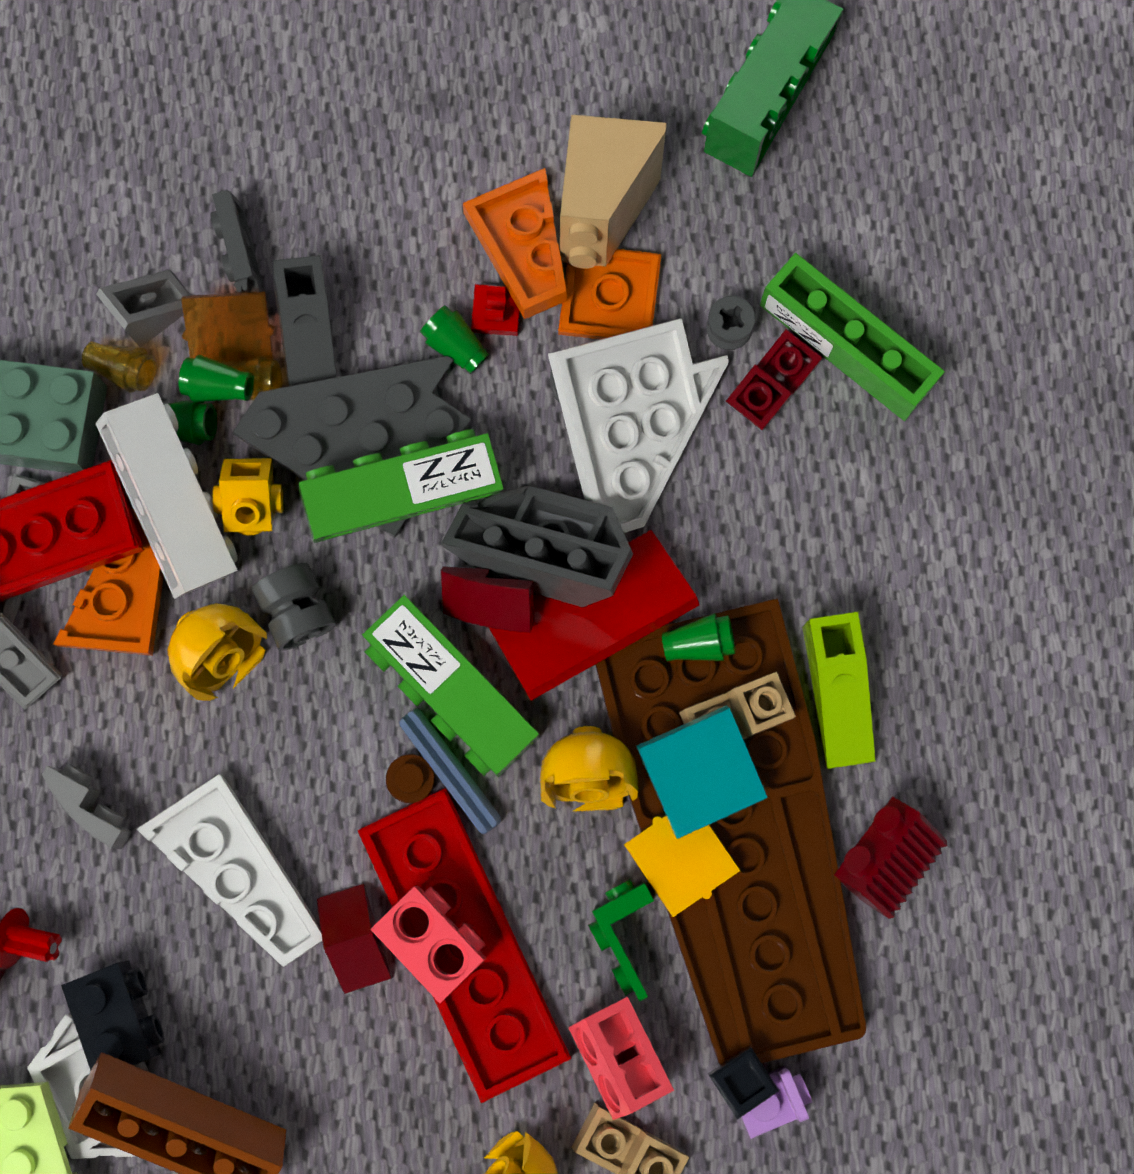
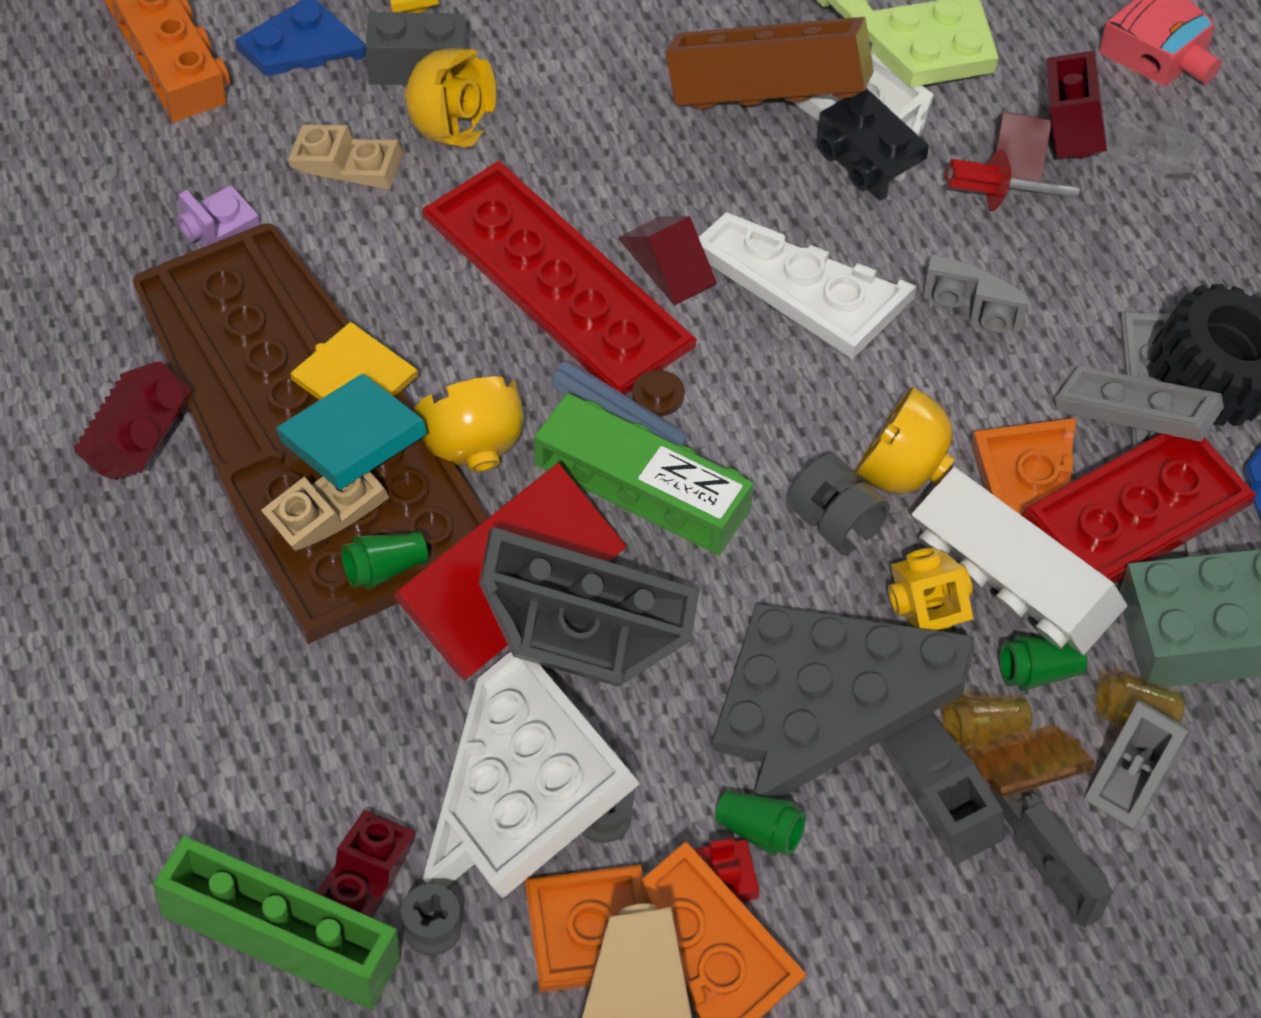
camera: 160 degrees right, 25 degrees down
(213, 381) = (1017, 685): green cone -> none
(400, 486) = (762, 622): bright green brick -> none
(420, 952) = (588, 248): coral brick -> none
(487, 601) = (632, 549): dark red slope -> none
(621, 1059) = (373, 204): coral brick -> none
(622, 901) = (413, 319): green bracket -> none
(743, 1082) = (248, 212): black tile -> none
(840, 688) = (220, 569): lime slope -> none

